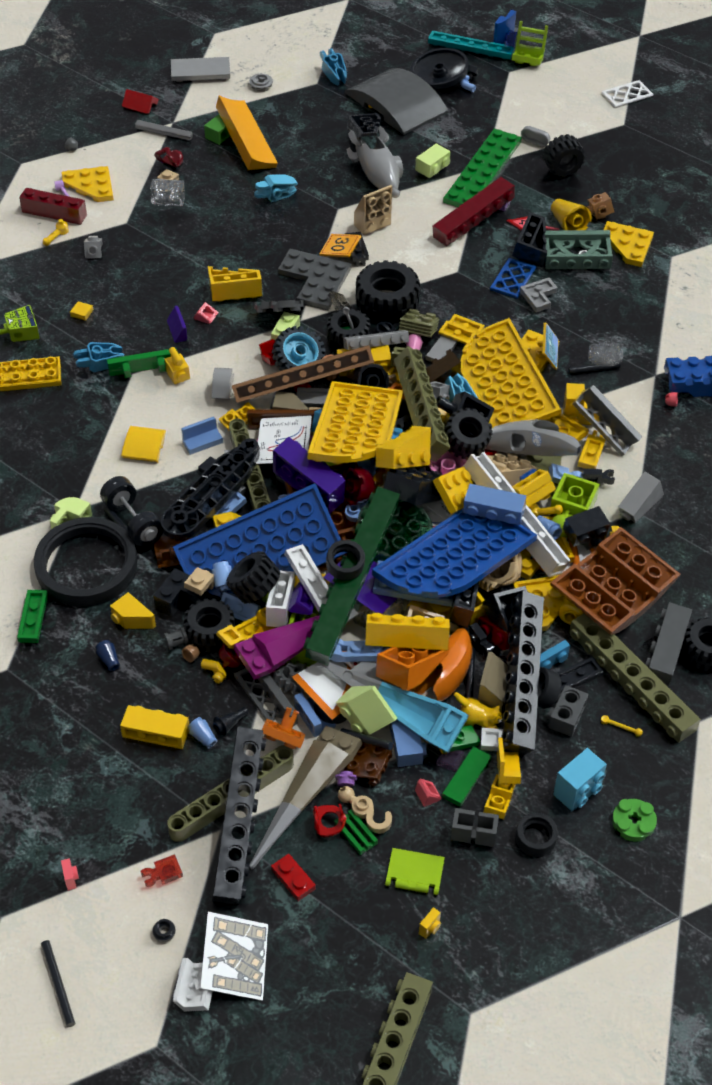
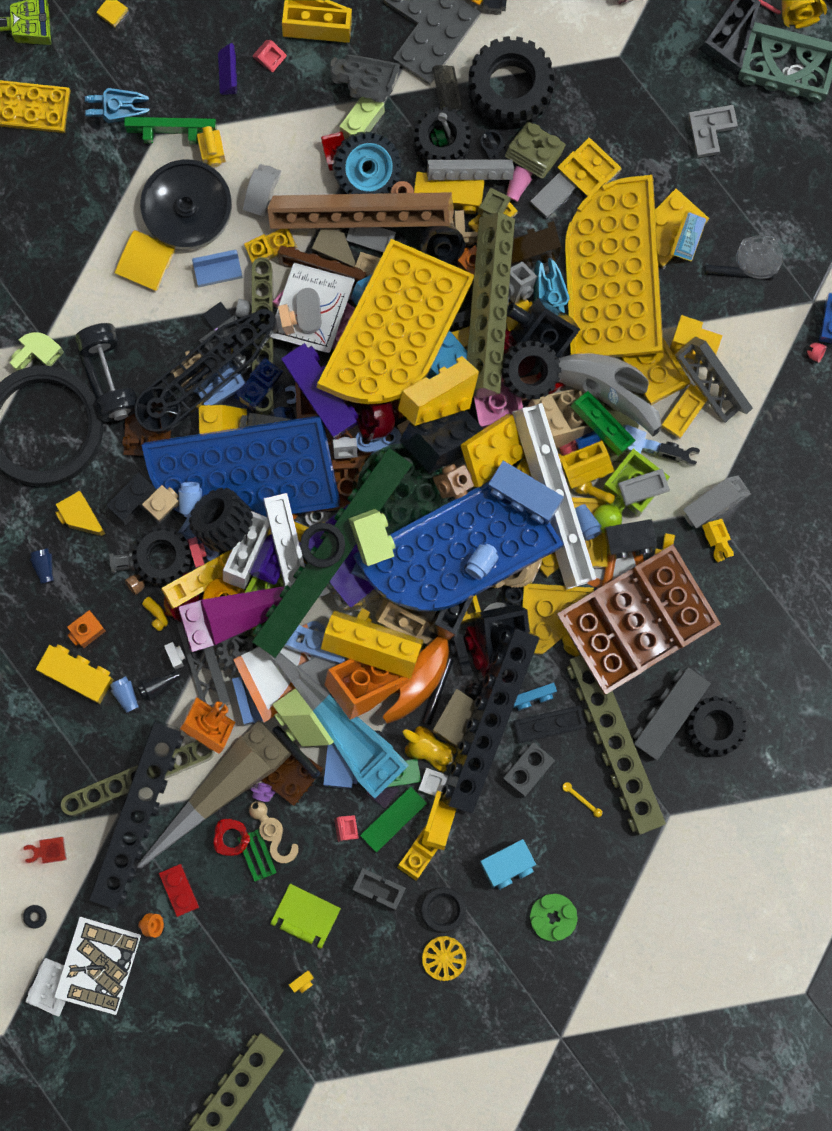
camera: 15 degrees right, 30 degrees up
(157, 691) = (85, 629): none -> orange brick
(167, 401) = (186, 204): none -> black dish
(239, 613) = (197, 551): none -> coral plate
(239, 694) = (175, 654): none -> white plate
(257, 493) = (259, 384): none -> clear blue slope
(267, 445) = (287, 318): none -> light nougat plate
(276, 909) = (151, 925): none -> orange tile
(279, 434) = (308, 310): none -> light grey tile
(340, 517) = (345, 448): none -> white plate
(383, 546) = (372, 537): none -> yellowish green brick
(434, 510) = (453, 481): none -> medium nougat brick
(478, 550) = (482, 561): none -> light blue brick
(506, 289) = (684, 68): blue window -> none
(534, 461) = (603, 423): none -> green plate
(551, 689) = (516, 743): black tyre -> none
(551, 875) = (444, 958): none -> yellow wheel
(582, 493) = (643, 487): none -> light grey tile
(650, 521) = (718, 536): none -> yellow plate

